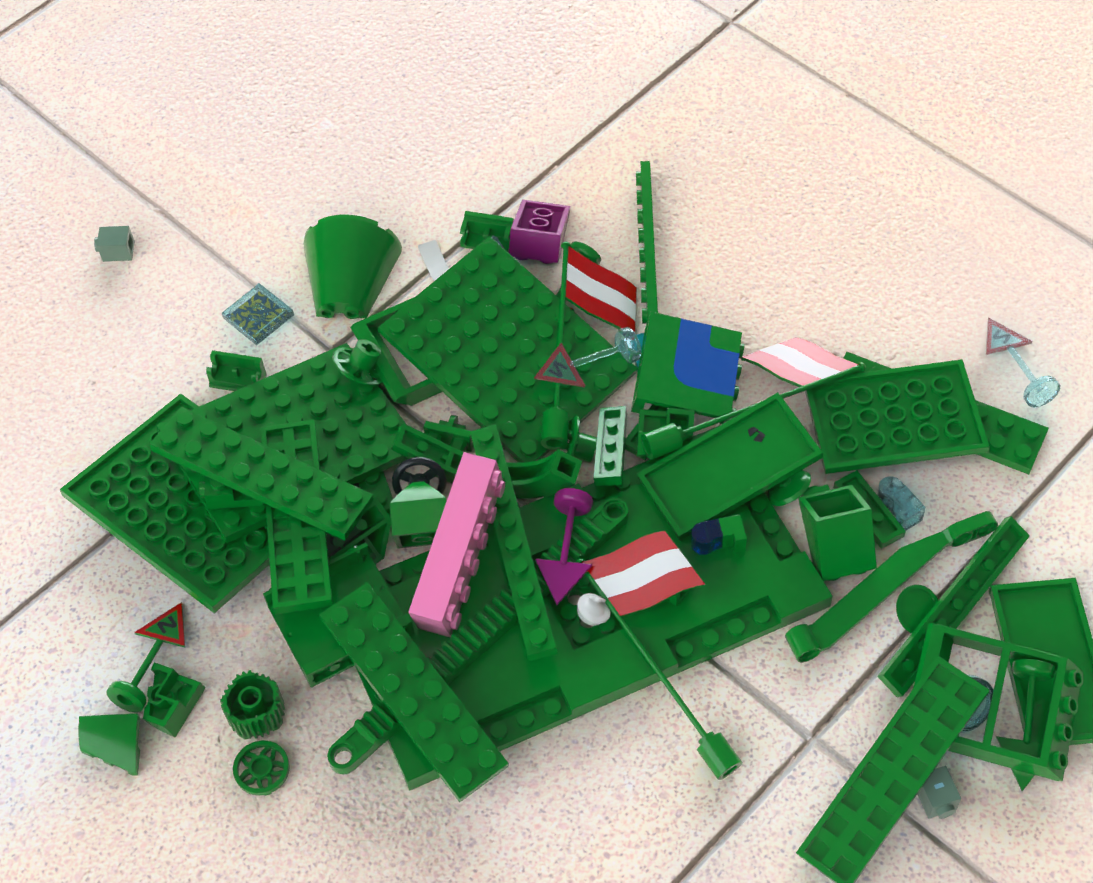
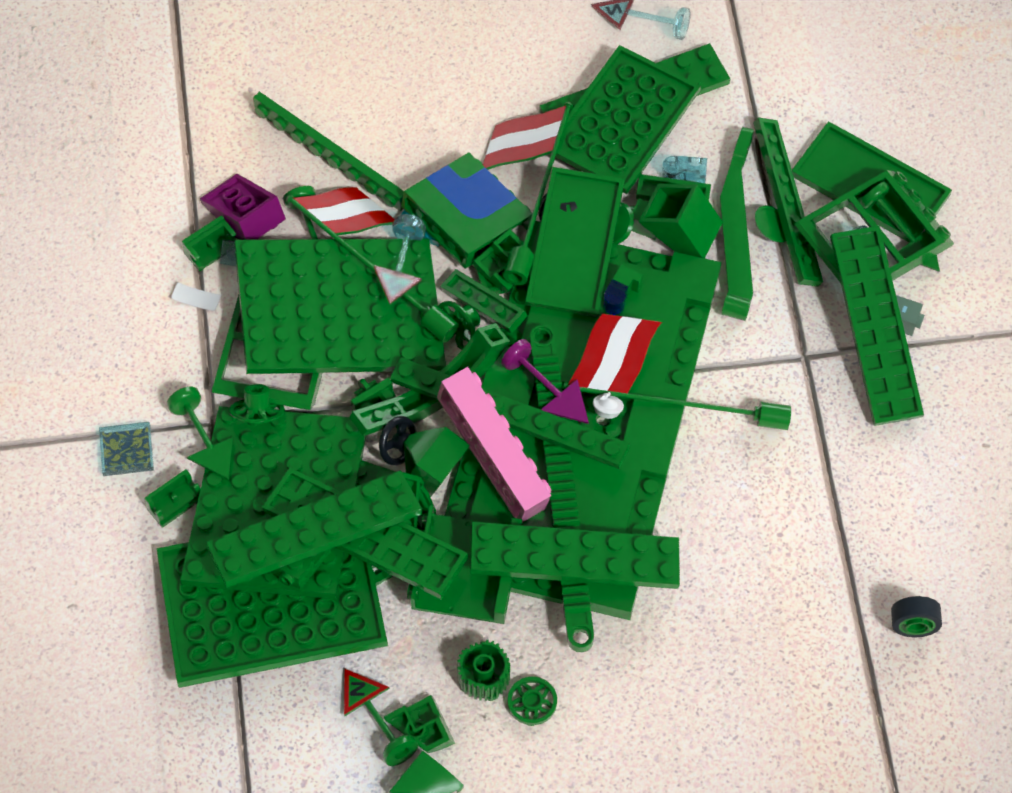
camera: 55 degrees left, 5 degrees up
(292, 370) = (213, 458): none -> green piece
(348, 264) = (143, 356): green cone -> none

